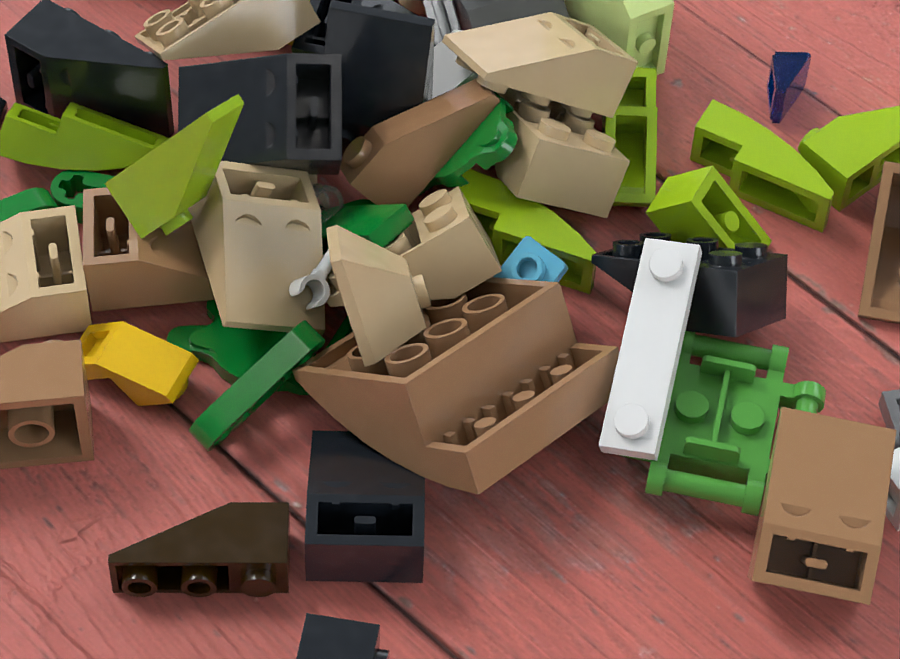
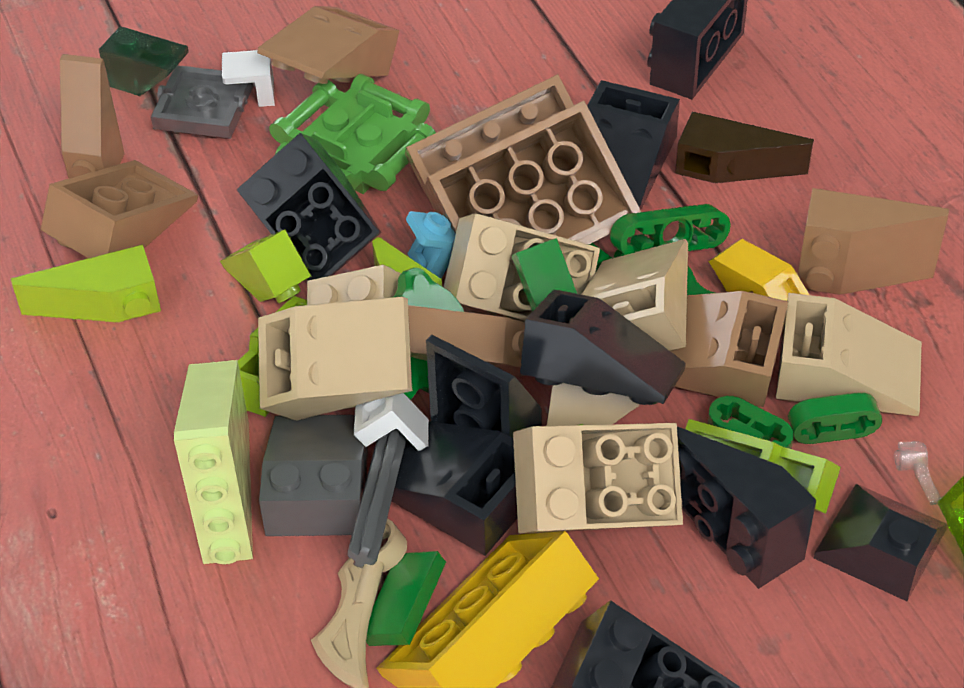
camera: 155 degrees left, 5 degrees down
(176, 173) = (696, 285): lime slope -> none
(316, 282) = (610, 257): white hand -> none
(377, 294) = (570, 199): tan slope -> none
(650, 349) = (382, 137): white plate -> none
(761, 166) = (195, 301): lime slope -> none
(786, 81) = (117, 357): clear blue slope -> none

